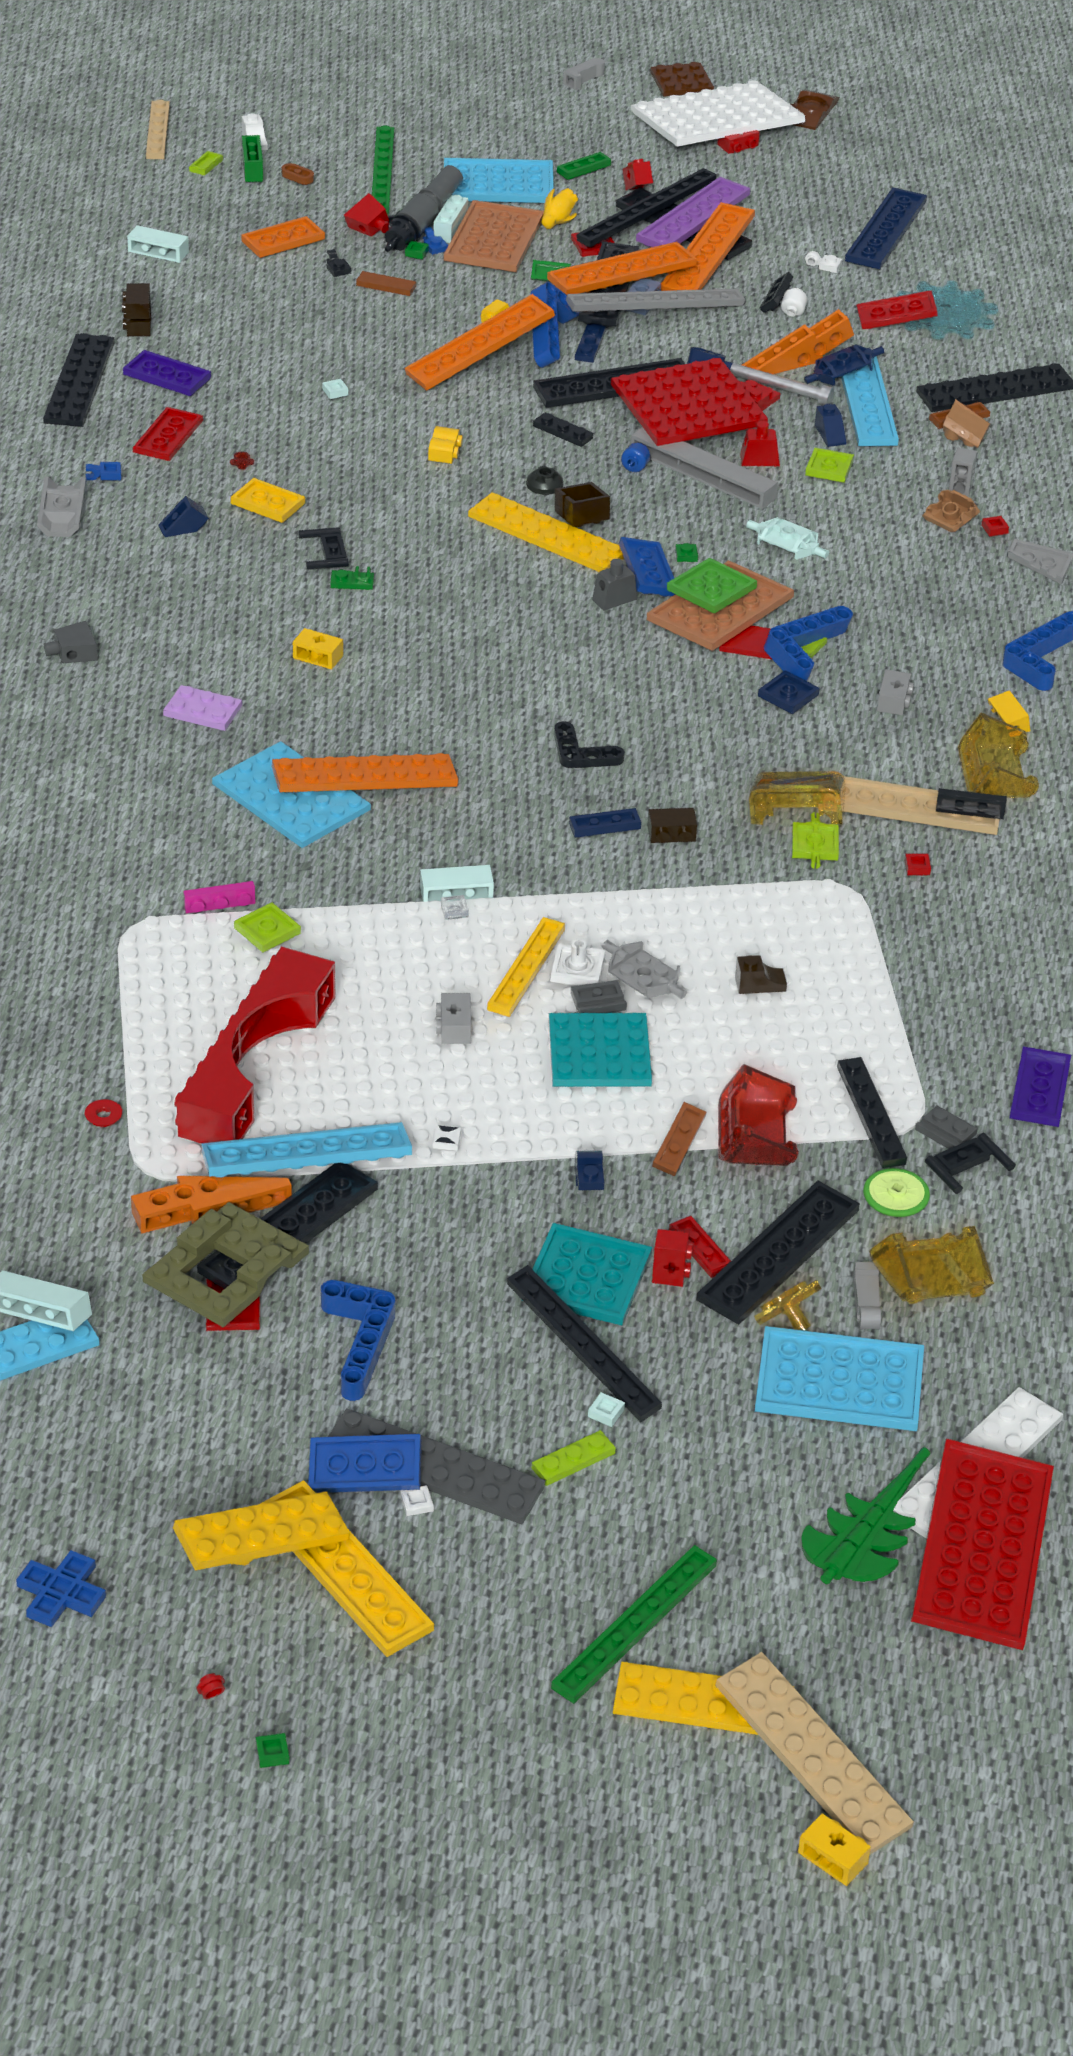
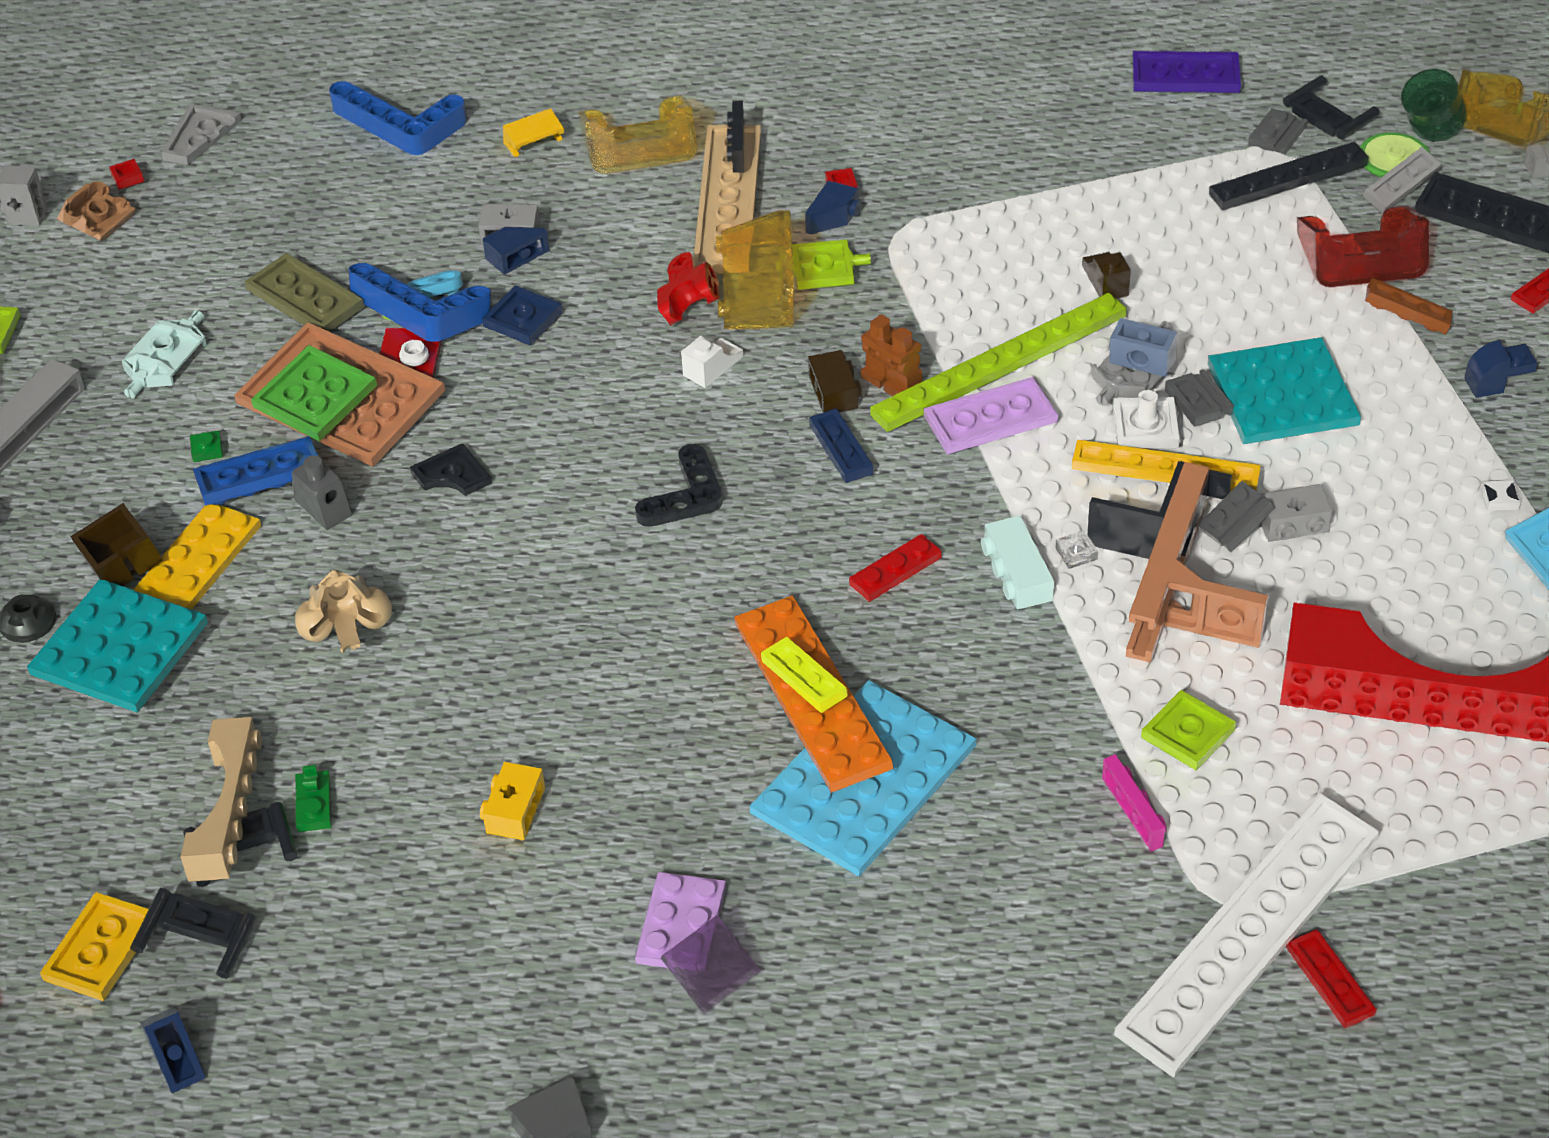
camera: 95 degrees left, 5 degrees up
(50, 960) = (1331, 978): none -> red tile
(94, 924) = (1245, 935): none -> white plate
(160, 708) = (710, 964): none -> clear purple tile
(269, 532) = (197, 921): none -> black plate
(365, 756) = (804, 674): none -> neon yellow plate
(393, 546) = (212, 846): none -> tan arch
(457, 981) = (1236, 516): none -> dark grey plate
(458, 946) = (1166, 542): none -> nougat piece
(475, 834) = (895, 567): none -> red plate
(498, 505) = (118, 645): none -> teal plate
(505, 590) = (339, 603): none -> tan hair
(613, 895) = (990, 415): none -> lavender tile
(632, 652) = (452, 469): none -> black tile
(640, 956) = (1143, 347): none -> sand blue brick
(674, 911) = (998, 361): none -> lime plate
(677, 844) = (890, 357): none -> dark orange hips
(713, 770) = (707, 360): none -> white arch
(750, 635) = (413, 353): none -> white plate
(778, 758) = (686, 286): none -> red piece
(831, 654) = (440, 283): none -> medium azure plate
(845, 590) = (304, 293): none -> olive plate
(852, 1180) = (1402, 180): none -> light grey plate
(864, 691) = (514, 247): none -> dark blue slope
(883, 852) = (832, 208): none -> dark blue slope
(938, 1208) = (1434, 105): none -> clear green wheel

